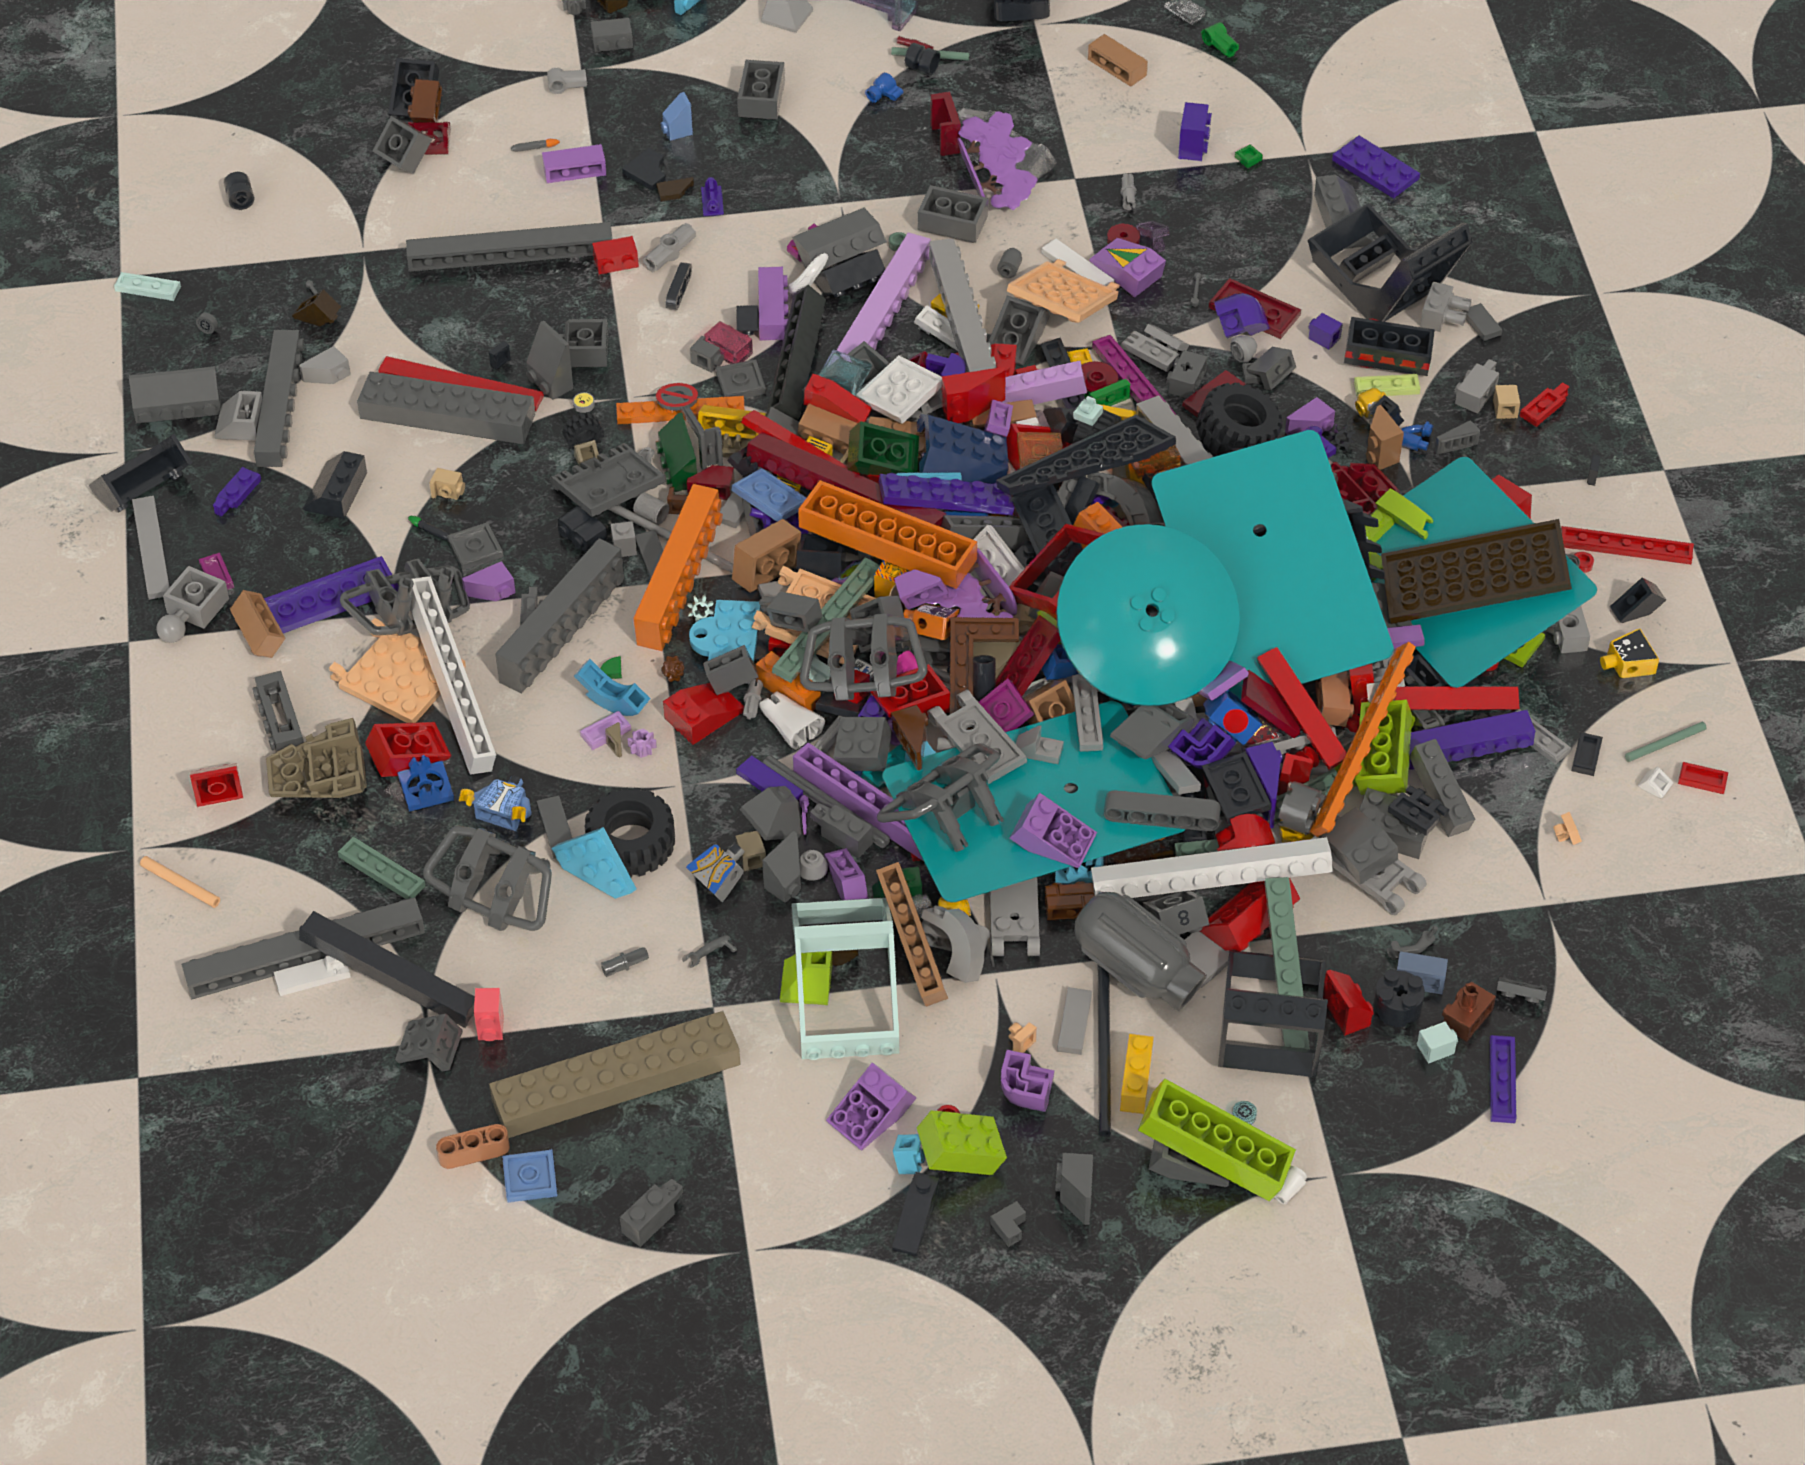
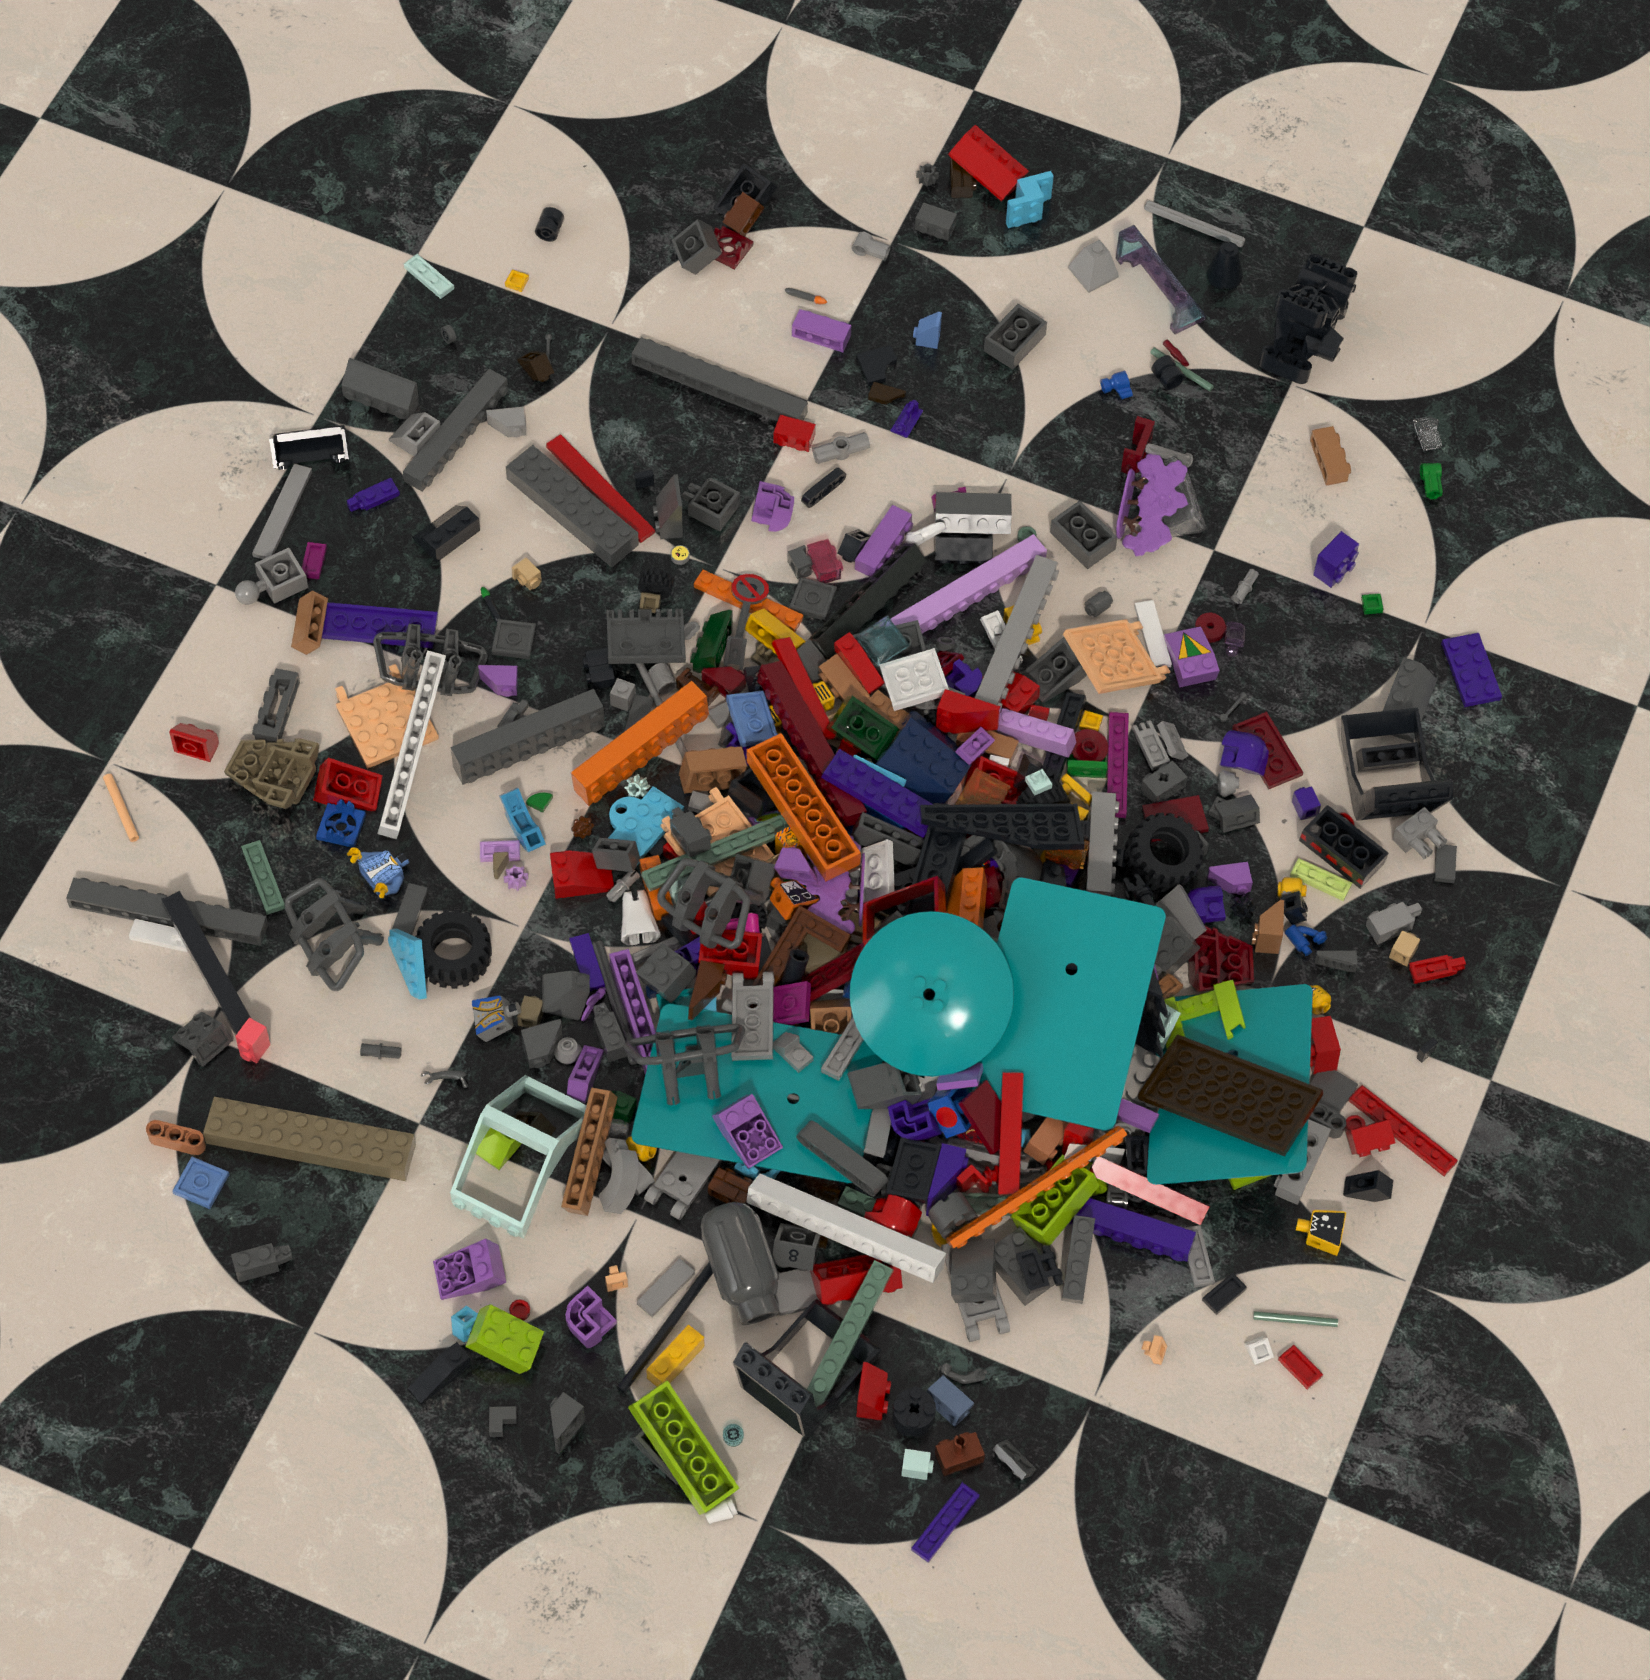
camera: 30 degrees right, 10 degrees up
(240, 252) = (516, 280): none -> yellow tile
(645, 320) = (772, 506): none -> medium lavender brick
(1607, 561) = (1370, 1137): none -> red brick

